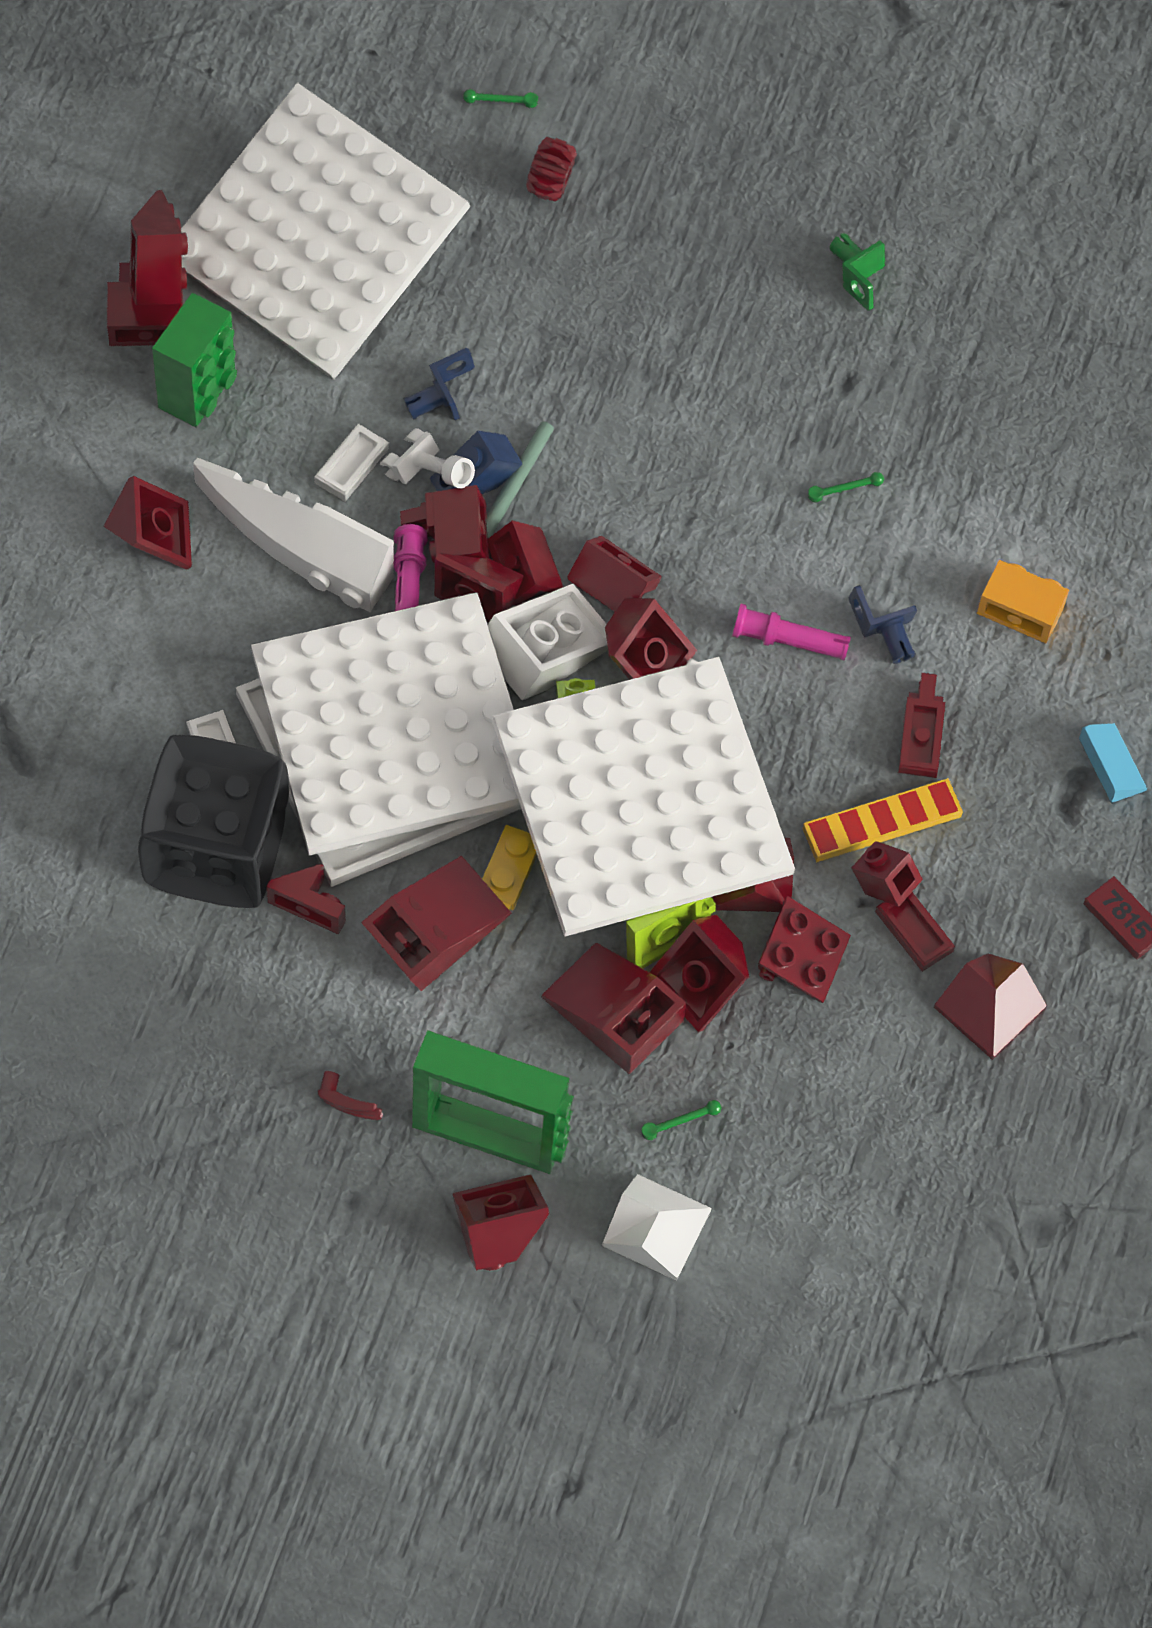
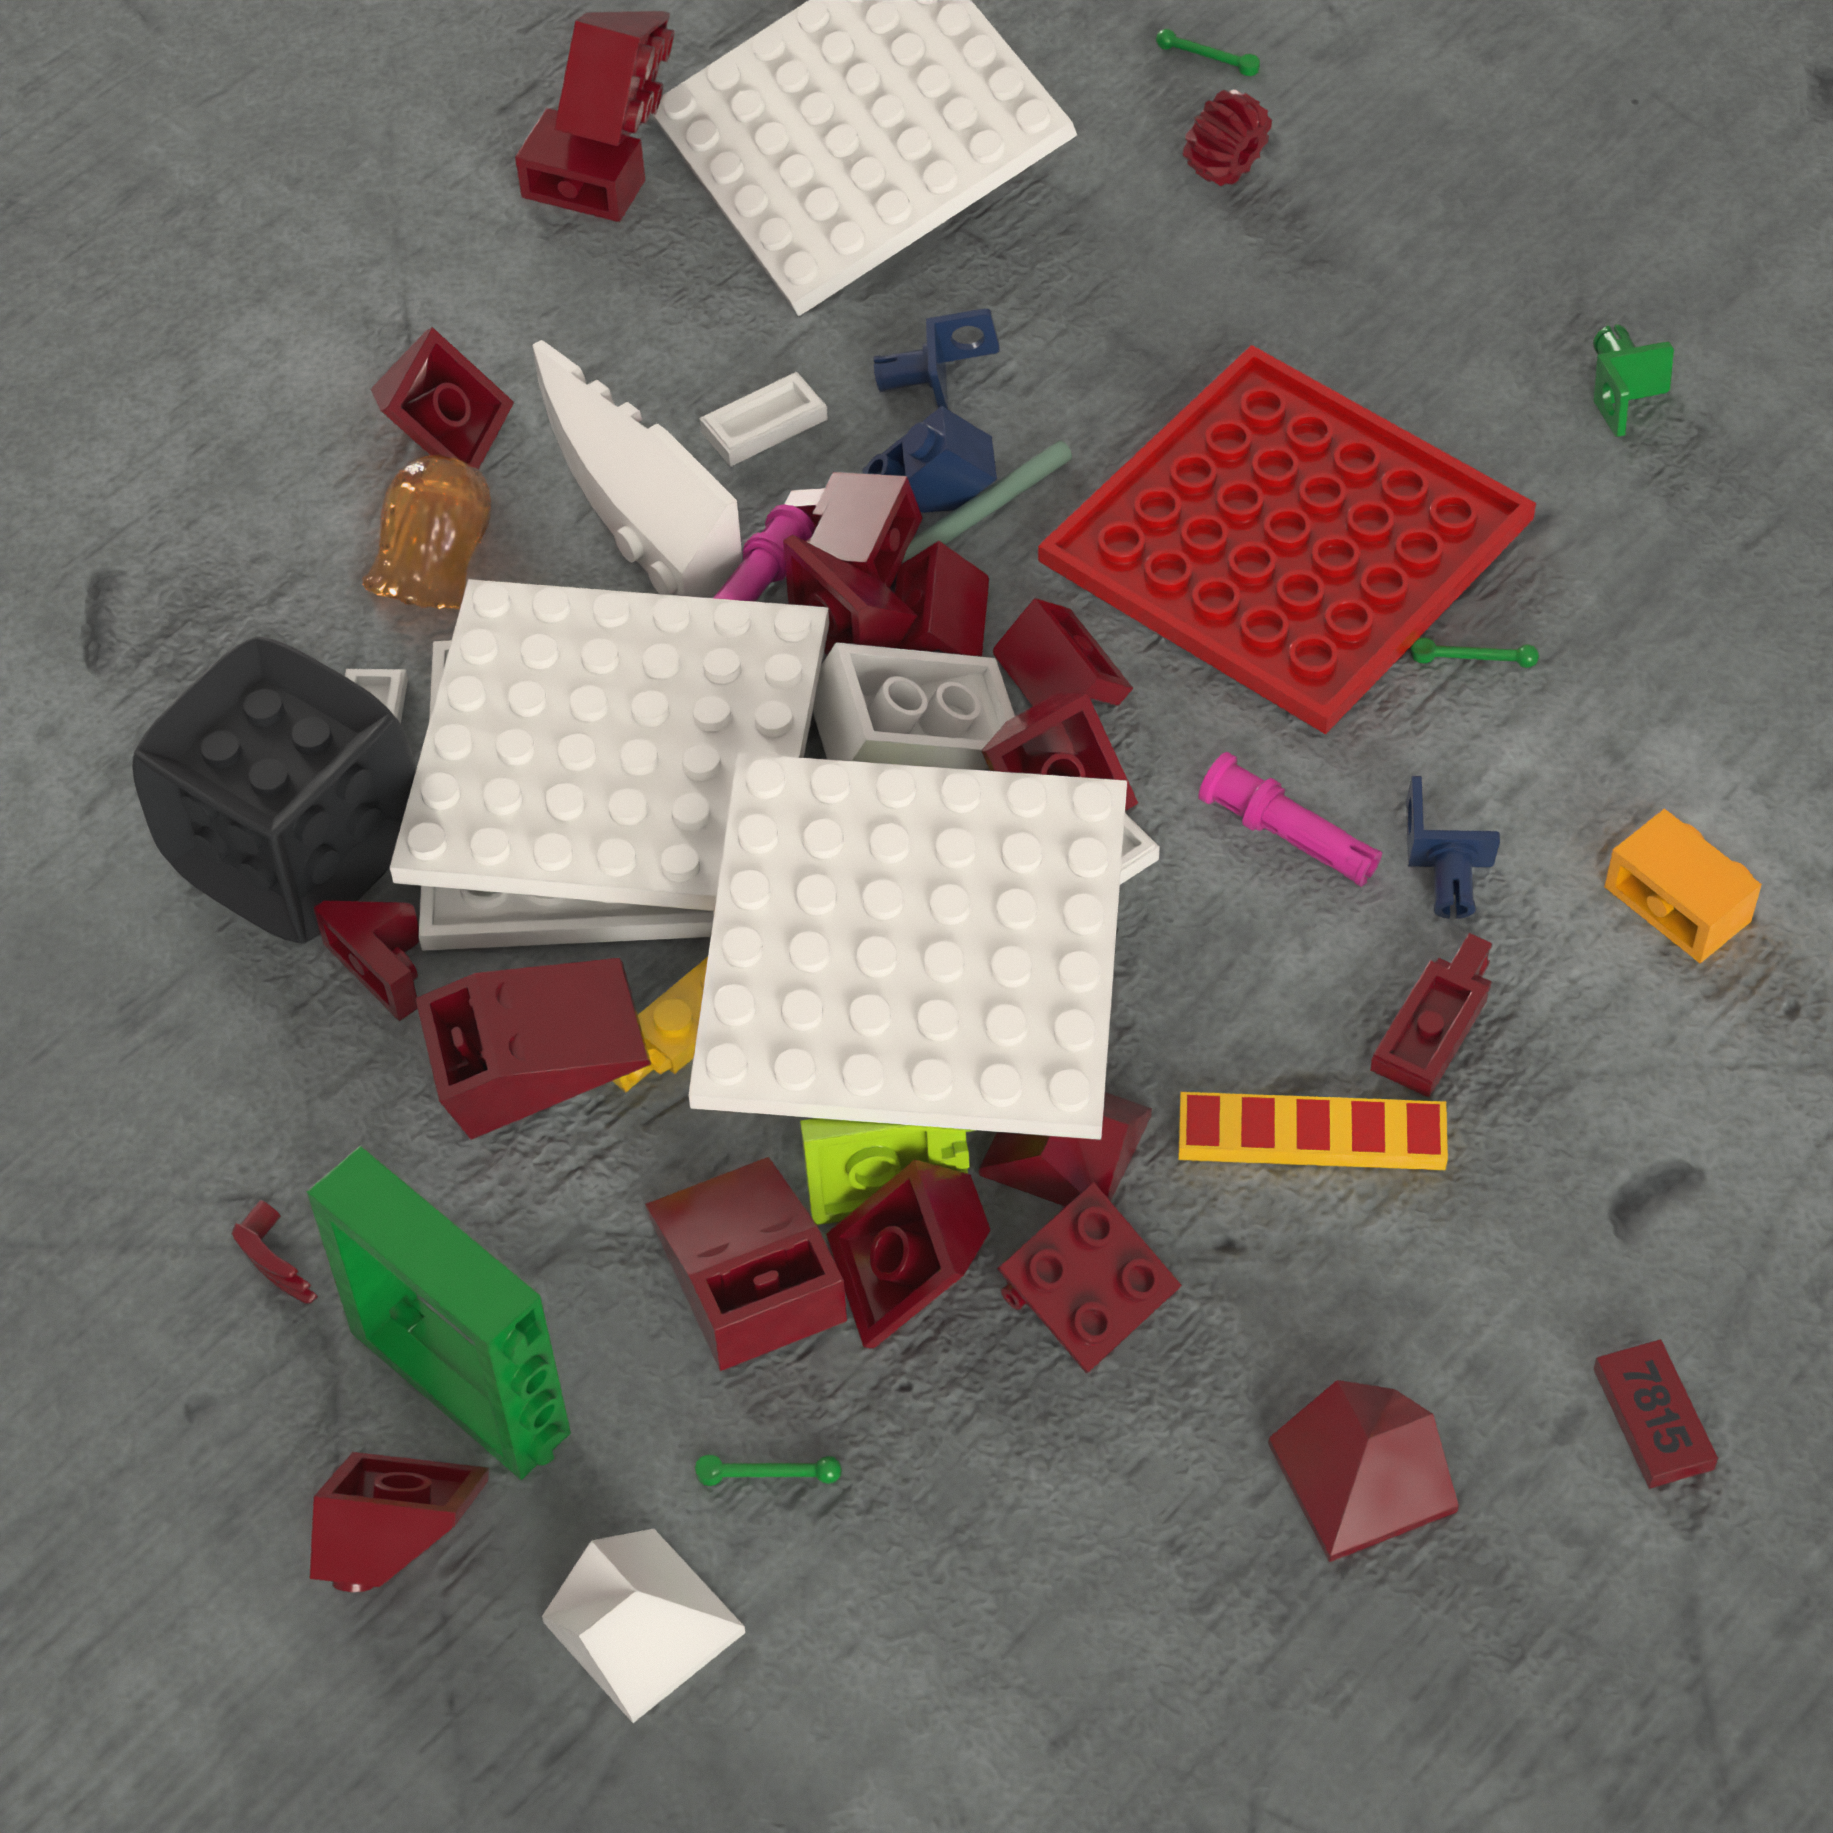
camera: 30 degrees right, 10 degrees down
(194, 360) = (597, 215): green brick -> none
(194, 615) = (429, 532): none -> clear orange piece
(454, 471) = (864, 428): white bar -> none
(706, 443) = (1287, 536): none -> red plate
(887, 873) = (1274, 1204): dark red brick -> none
(916, 931) = (1290, 1311): dark red tile -> none
(1112, 761) = (1734, 1166): medium azure slope -> none

